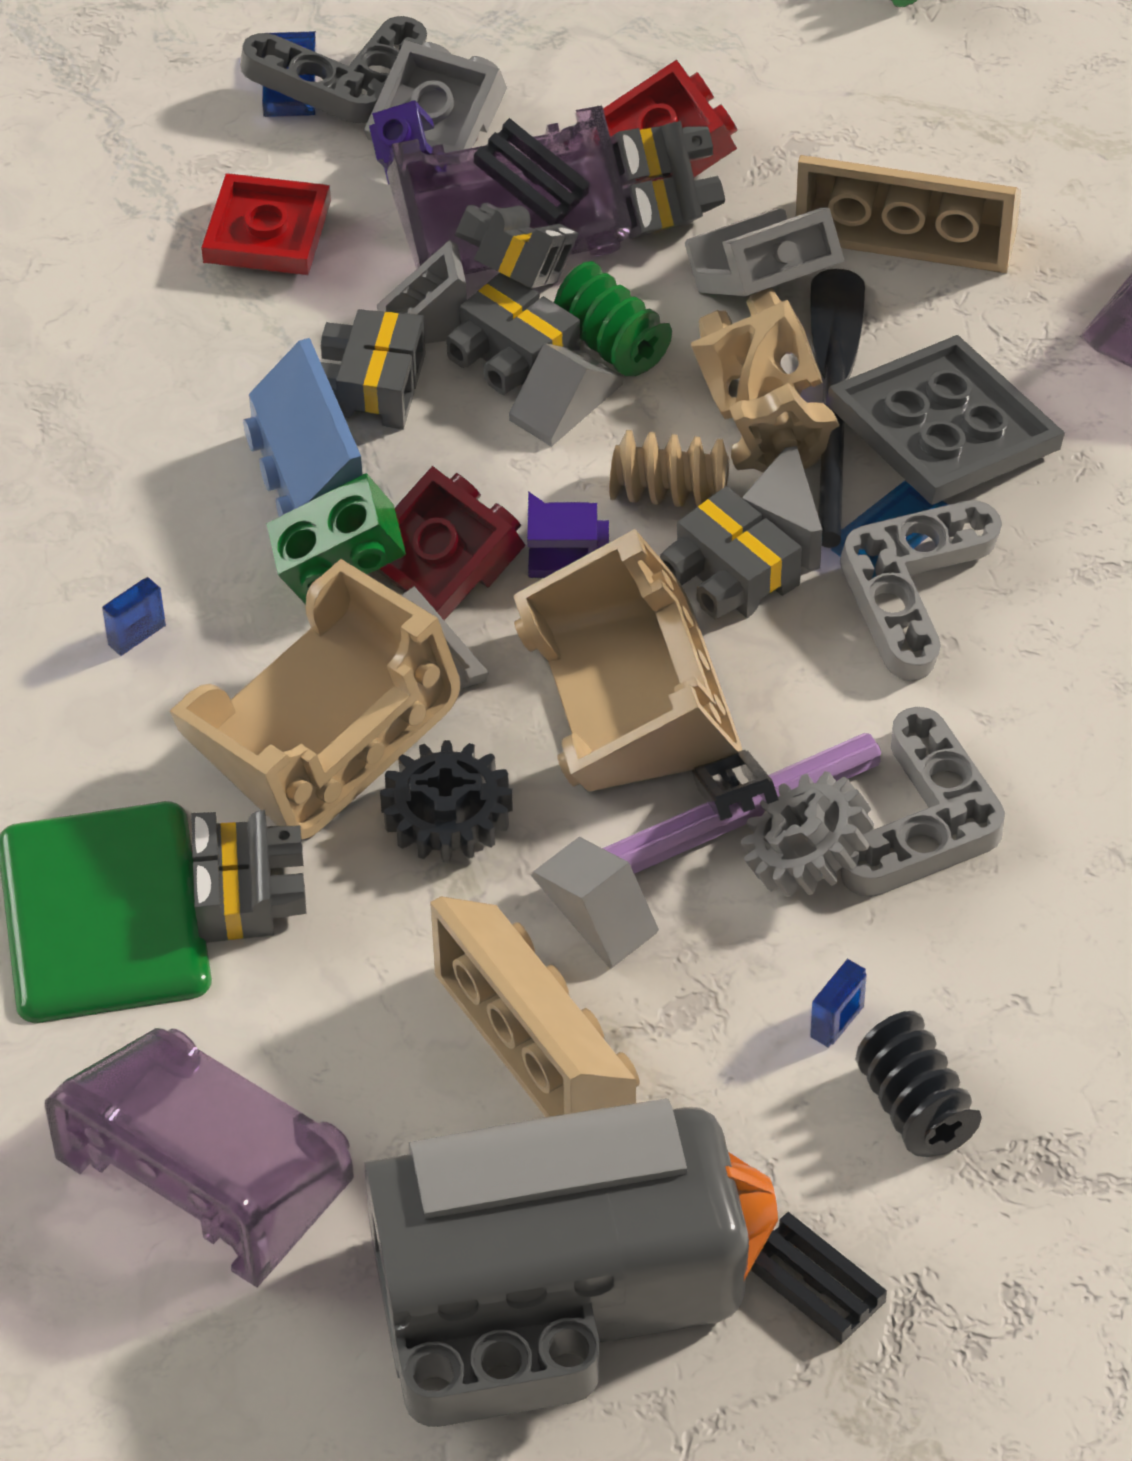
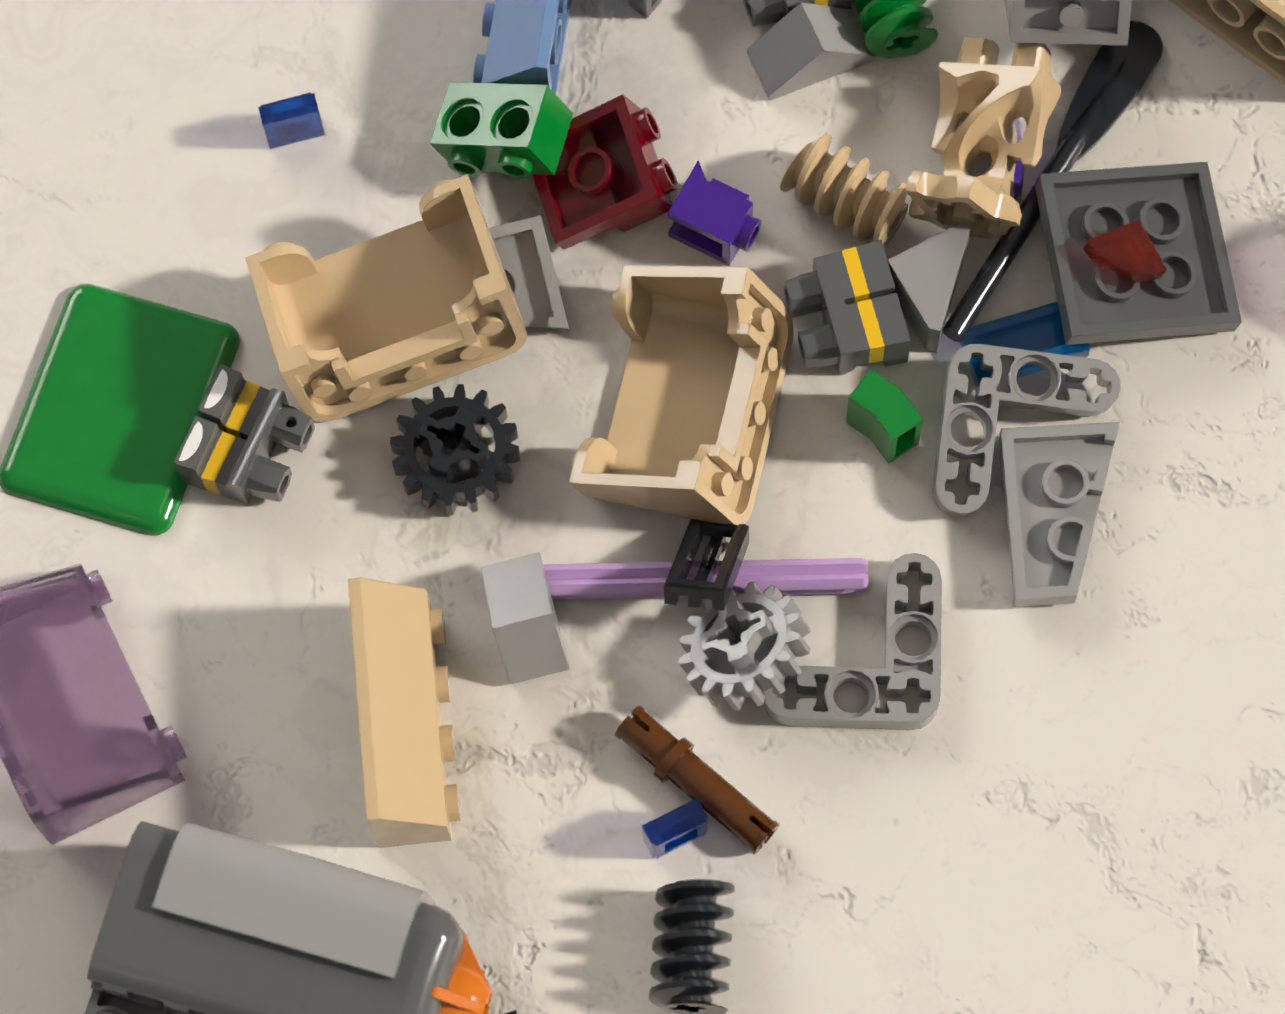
camera: 30 degrees right, 20 degrees up
(814, 617) = (884, 416): none -> green piece
(821, 958) = (695, 778): none -> reddish brown pin
(942, 410) = (1127, 253): none -> clear red tile
(996, 628) = (1051, 505): none -> light grey wing

